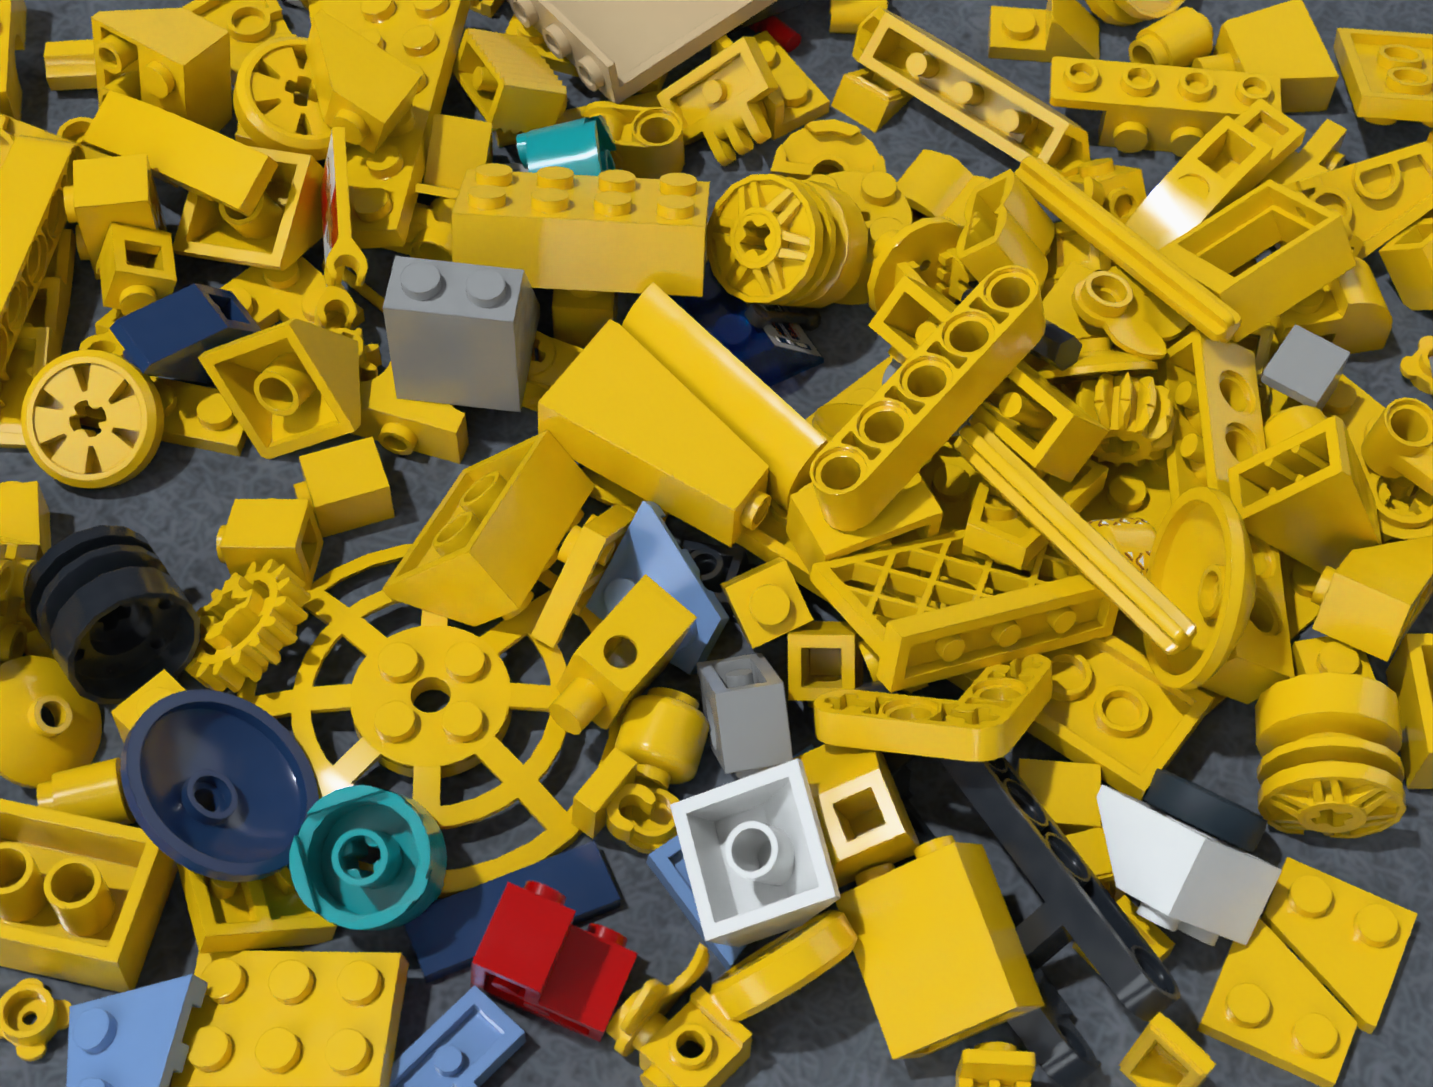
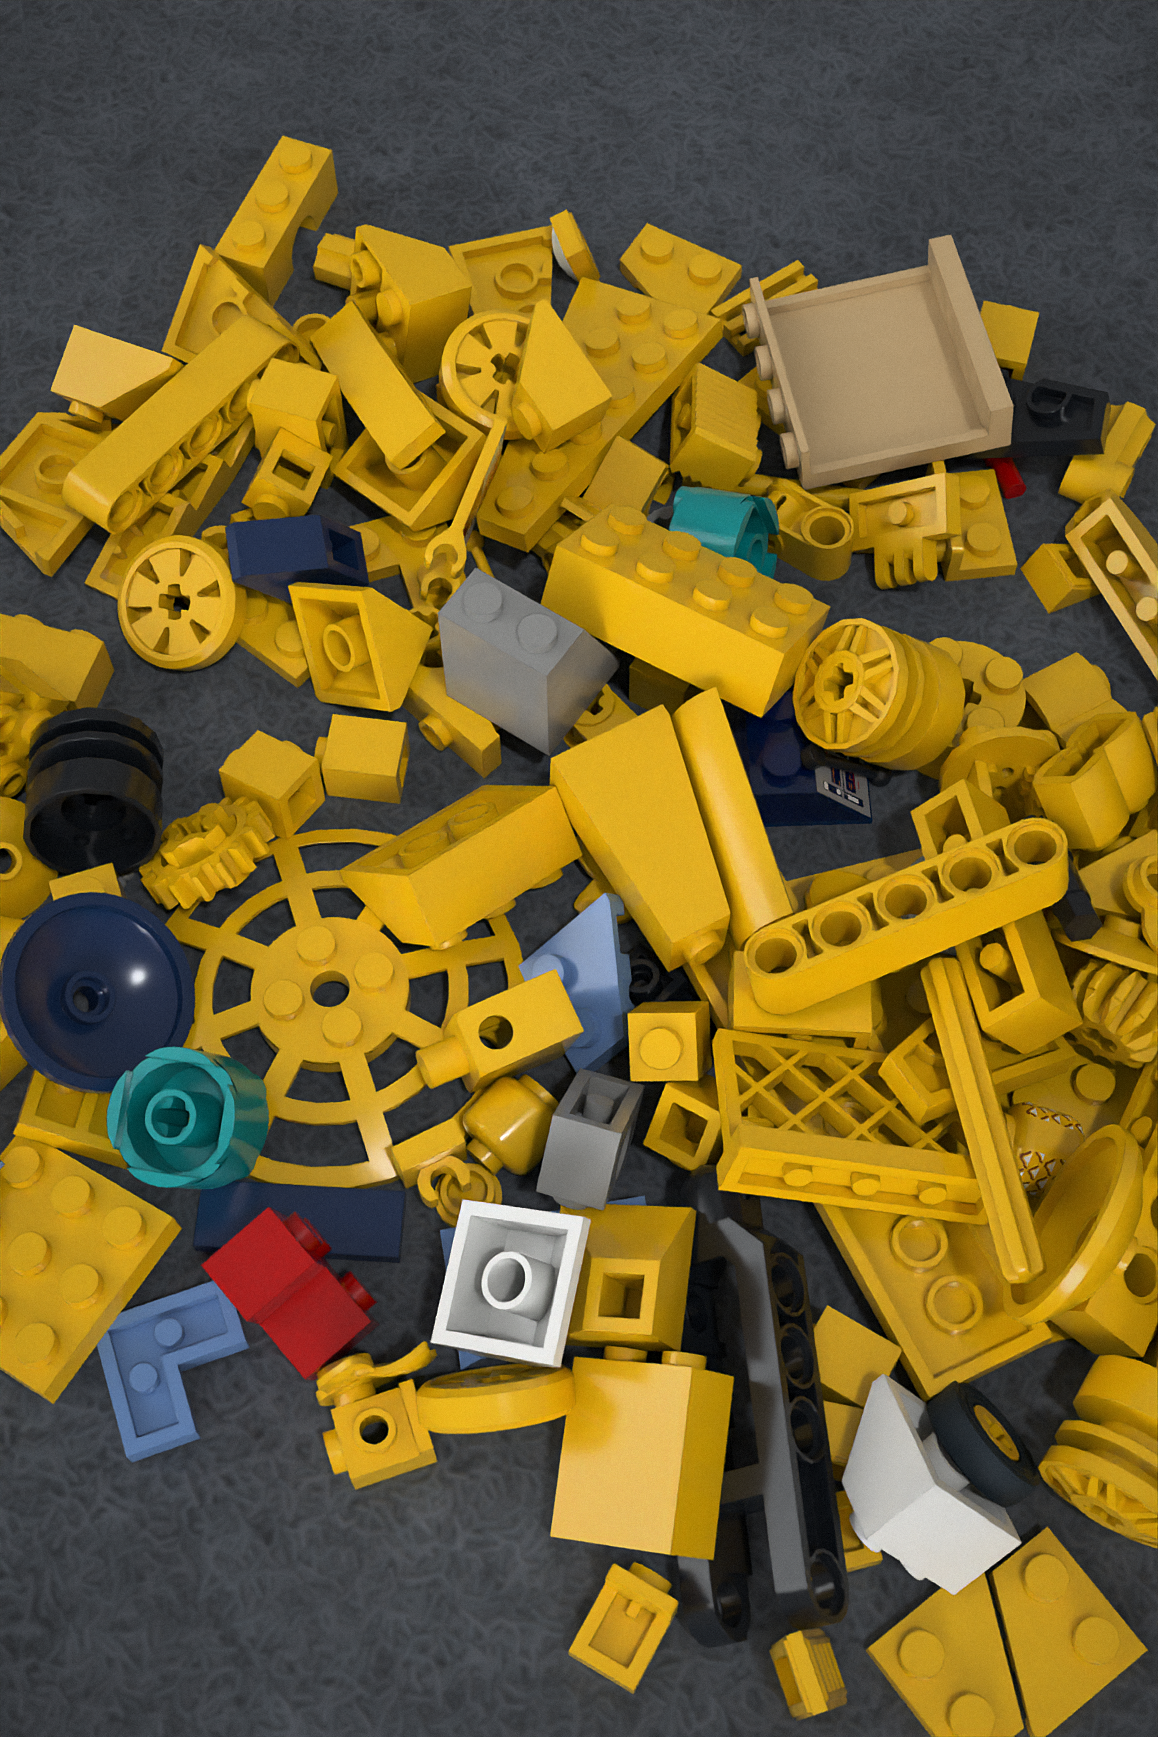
camera: 30 degrees right, 5 degrees up
(585, 557) = (524, 927): yellow wing -> none
(826, 149) = (975, 612): yellow cylinder -> none
(974, 728) = (758, 1261): yellow beam -> none

